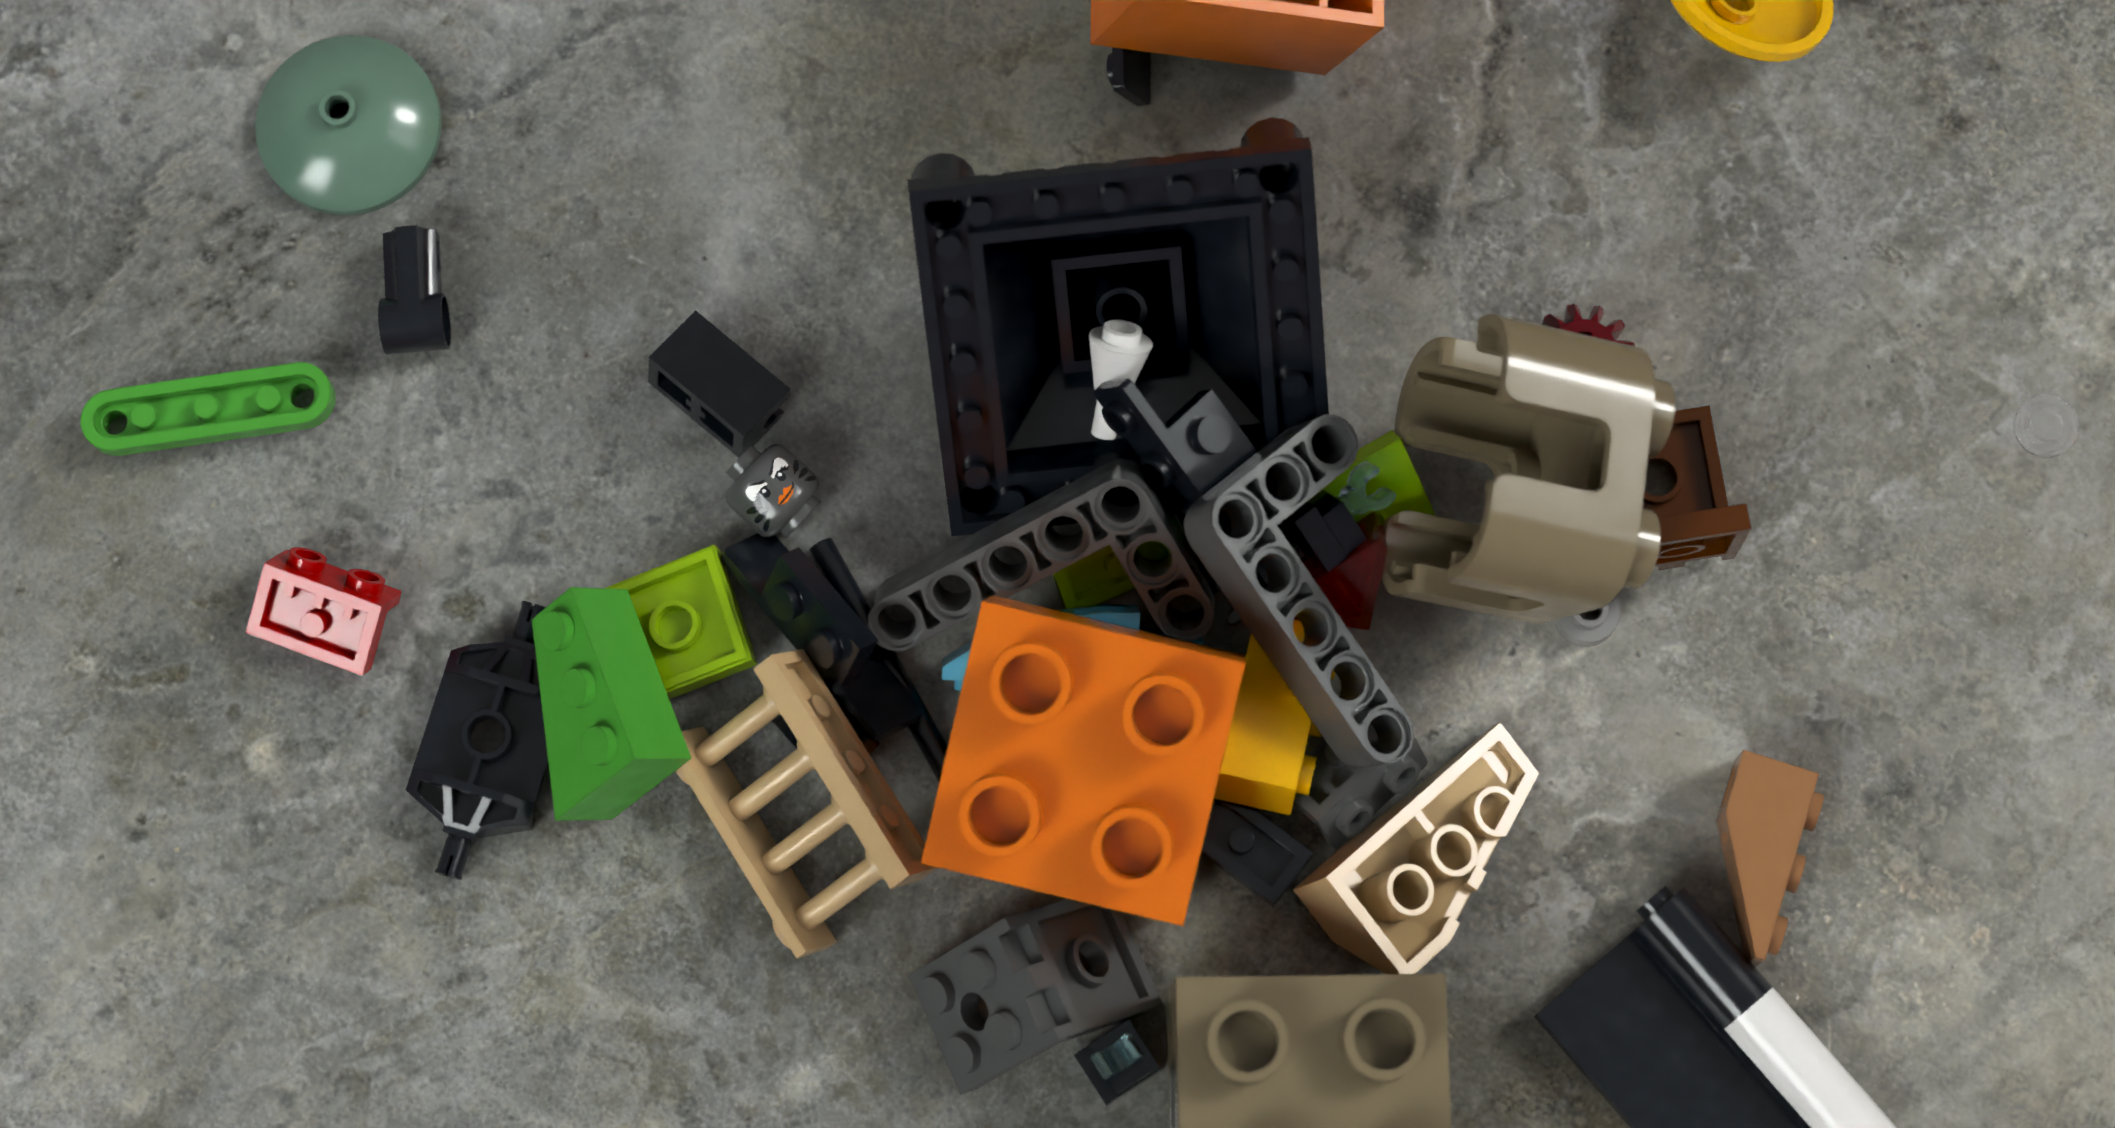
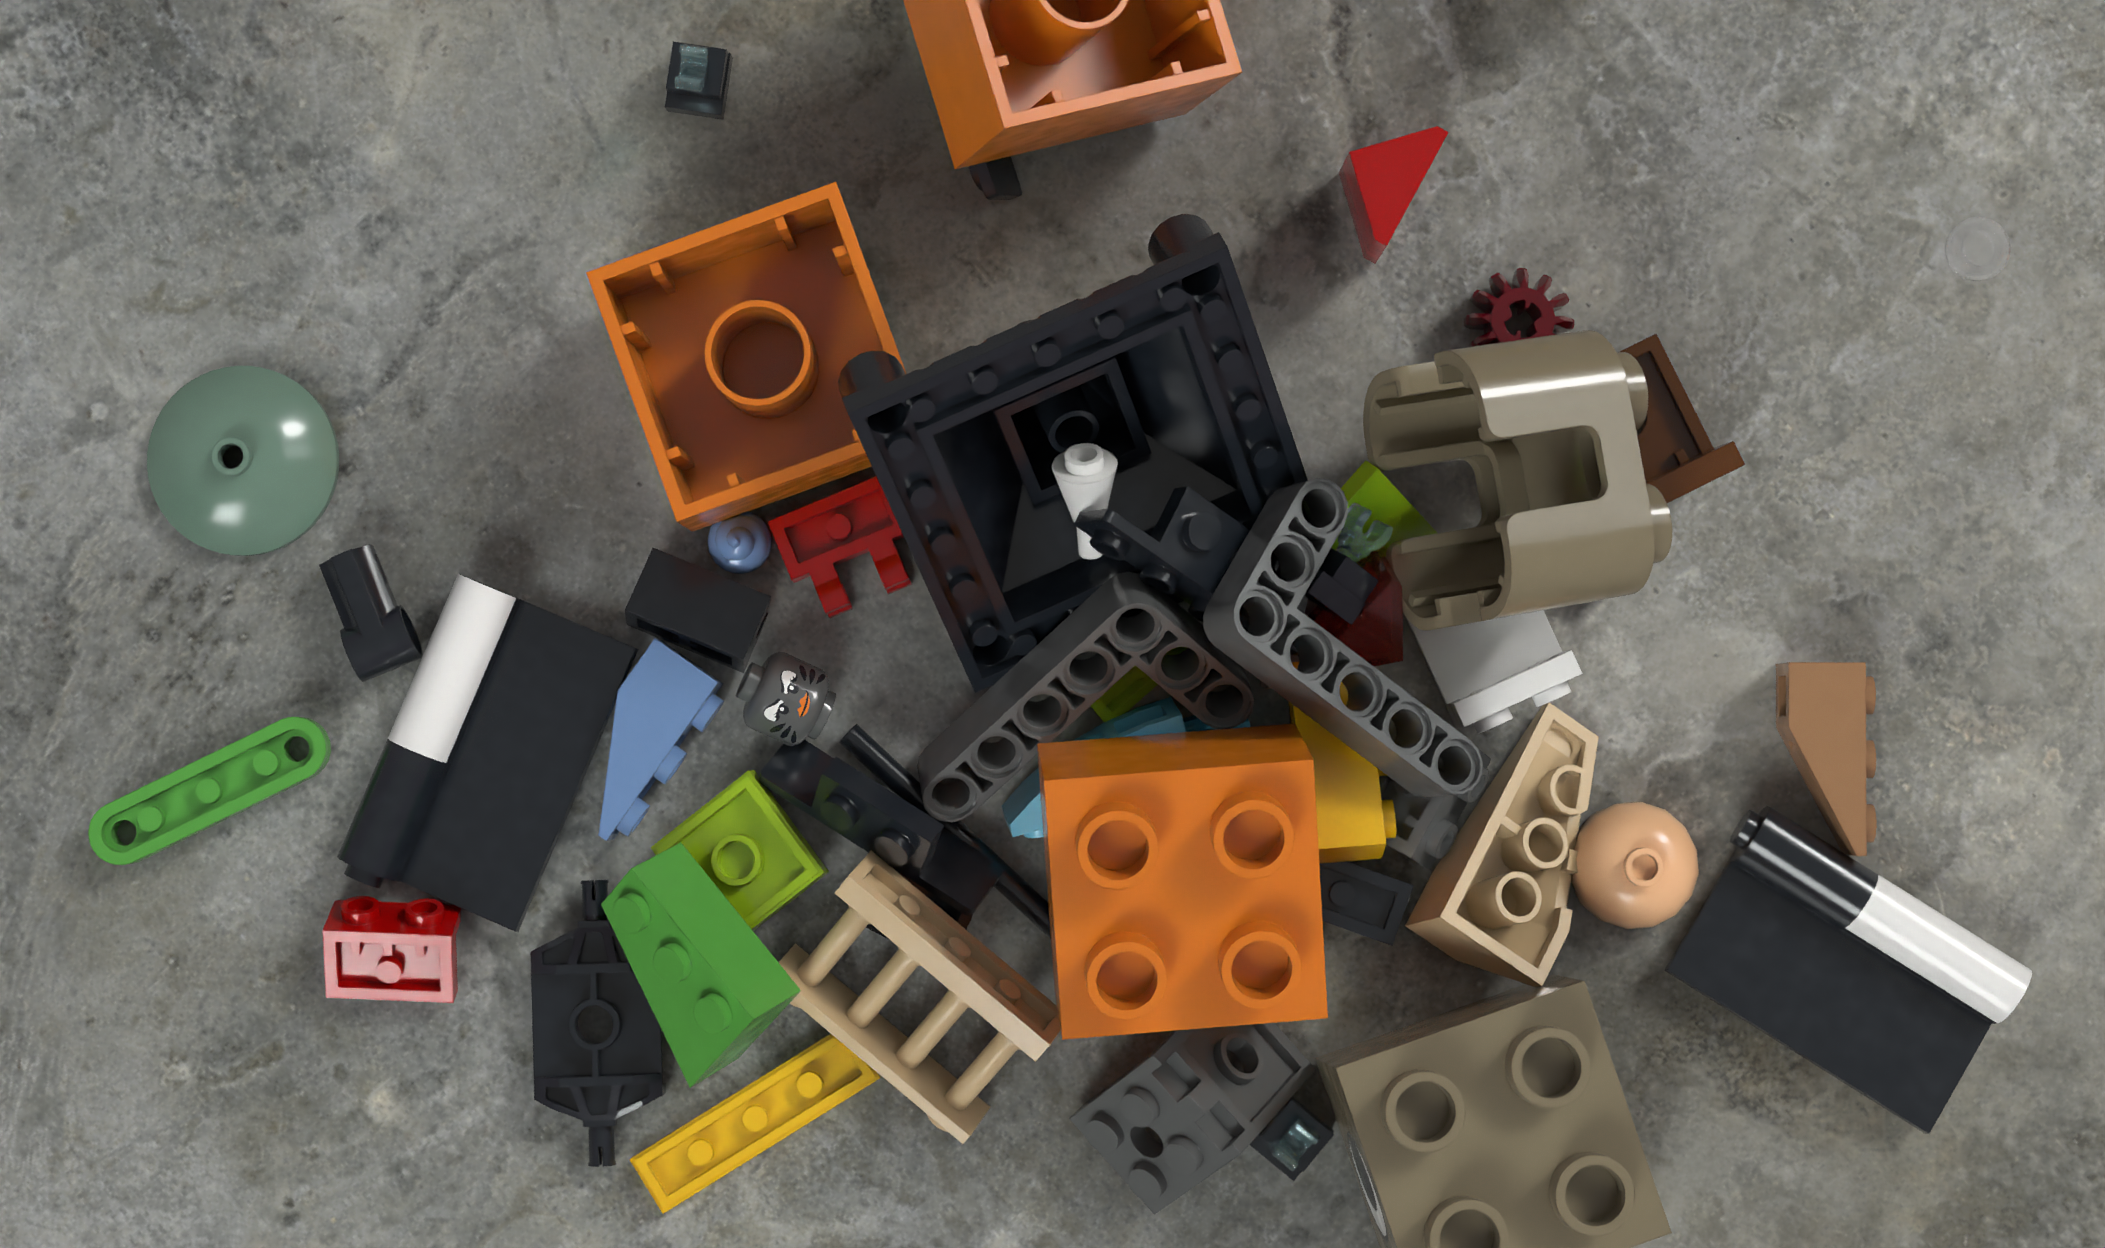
camera: 25 degrees left, 10 degrees up
(475, 455) = (486, 753): none -> black door
(605, 880) = (751, 1121): none -> yellow tile
(641, 471) = (651, 720): none -> medium blue slope
(779, 335) = (740, 543): none -> medium blue plate
(821, 146) = (742, 350): none -> orange brick
(872, 353) = (836, 531): none -> red plate
(1458, 662) = (1495, 665): none -> white bracket
(1495, 184) = (1382, 183): none -> red slope
(1535, 906) = (1634, 865): none -> light nougat cylinder

